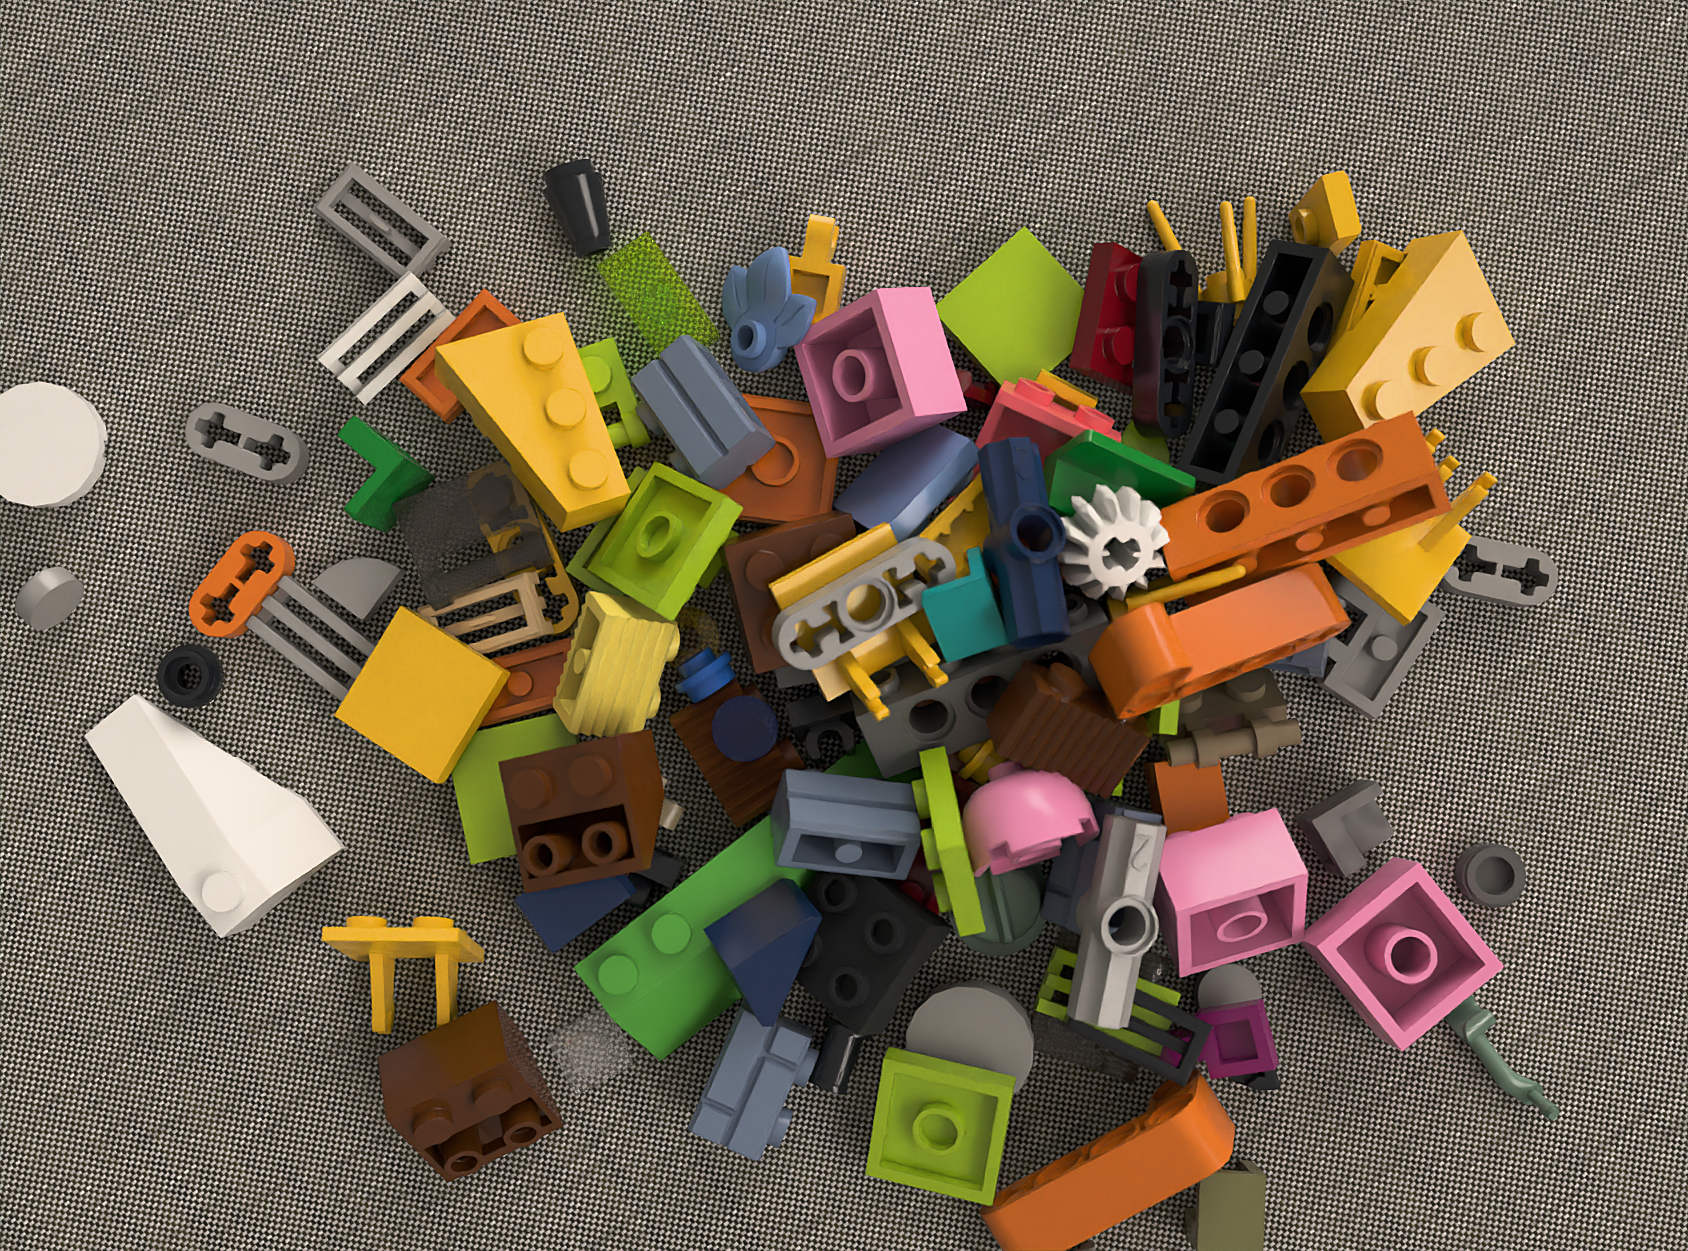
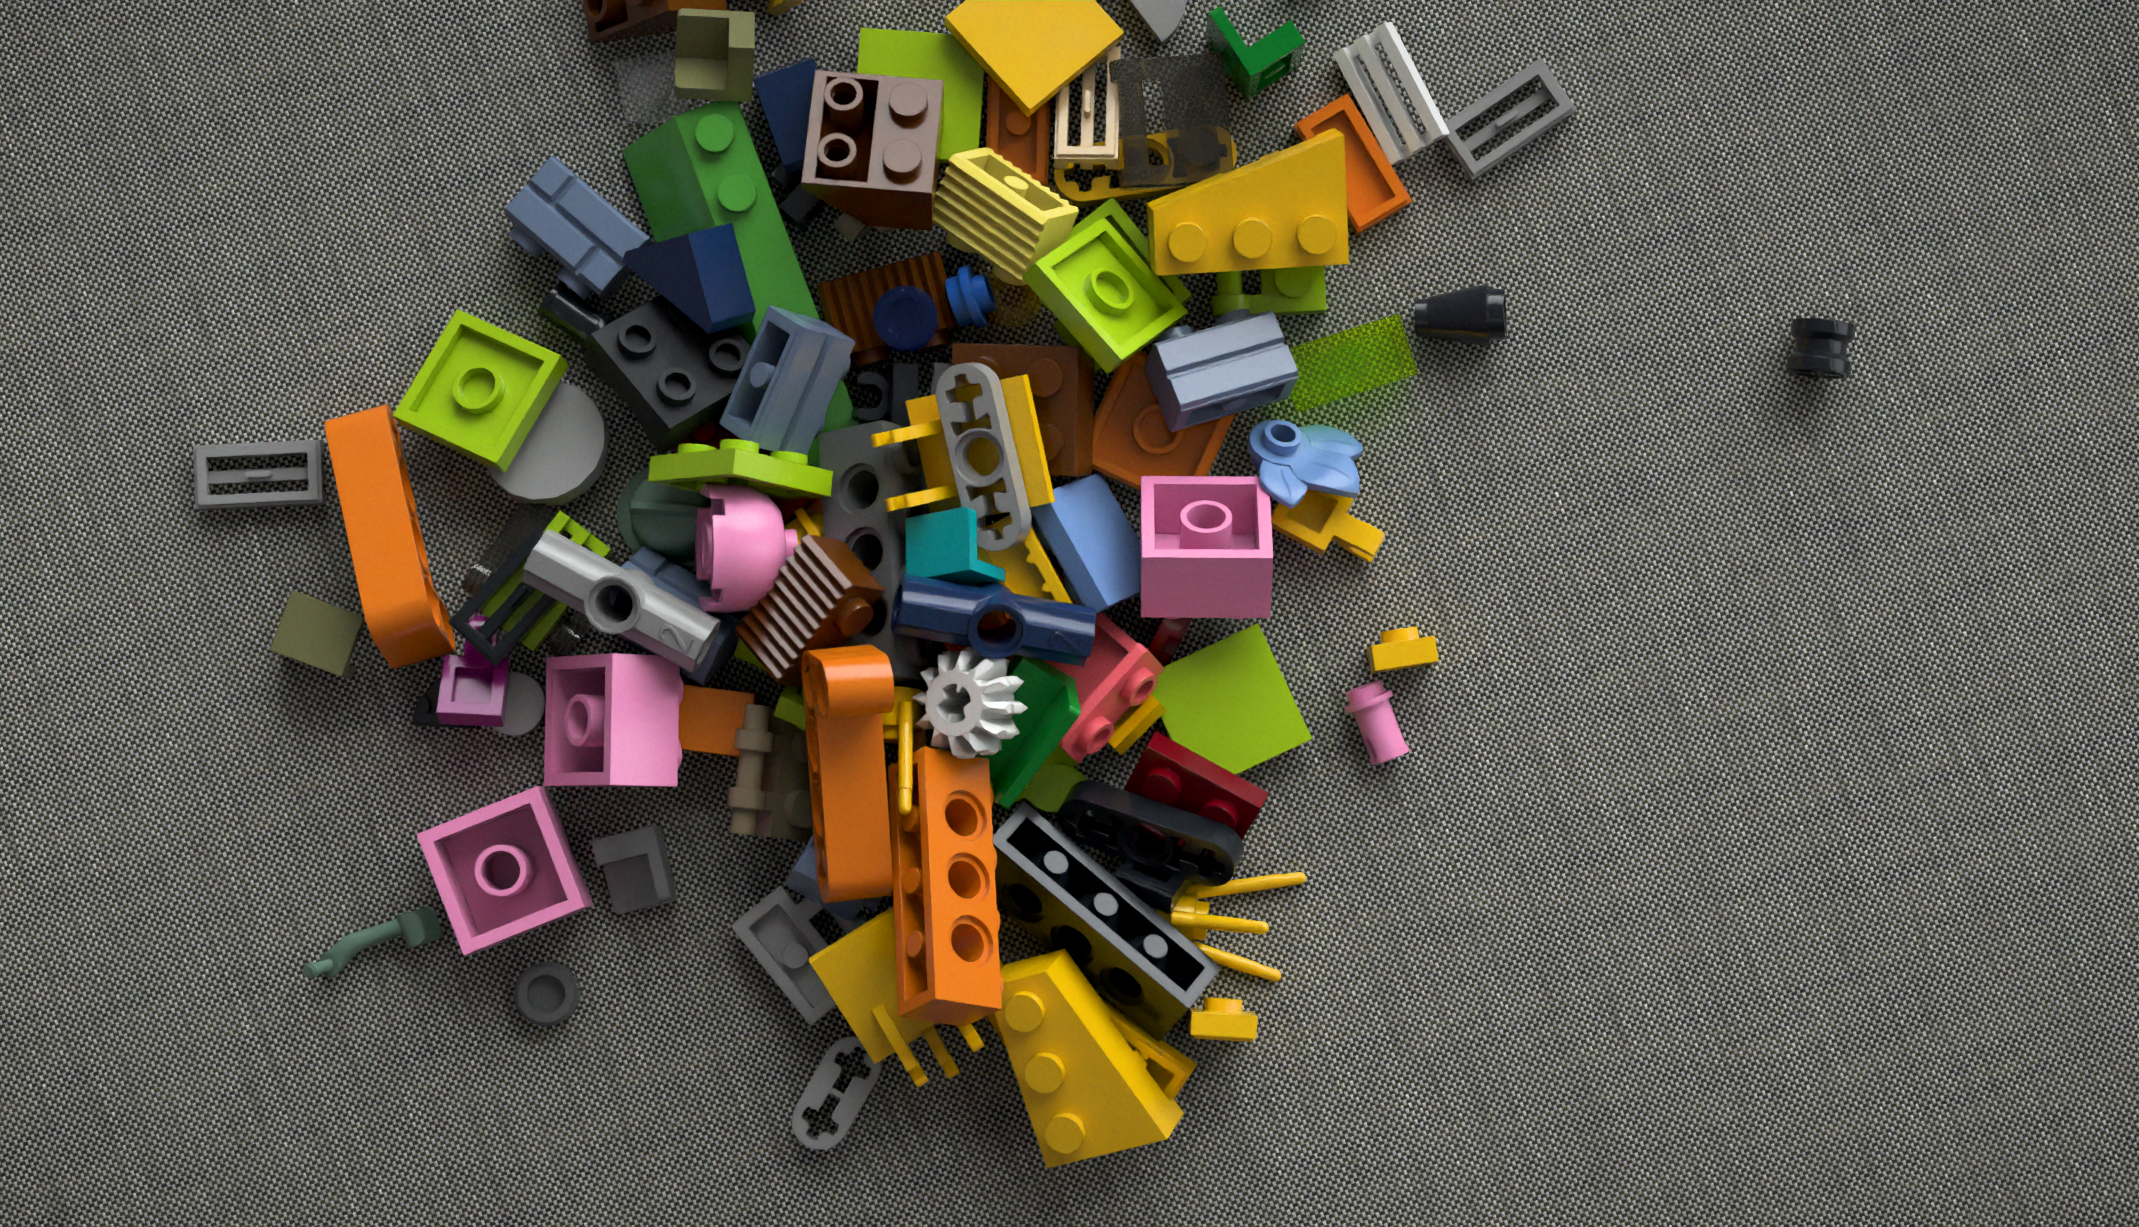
camera: 110 degrees right, 0 degrees up
(539, 999) = (714, 54): none -> olive panel
(916, 168) = (1402, 650): none -> yellow plate
(987, 175) = (1376, 721): none -> bright pink pin

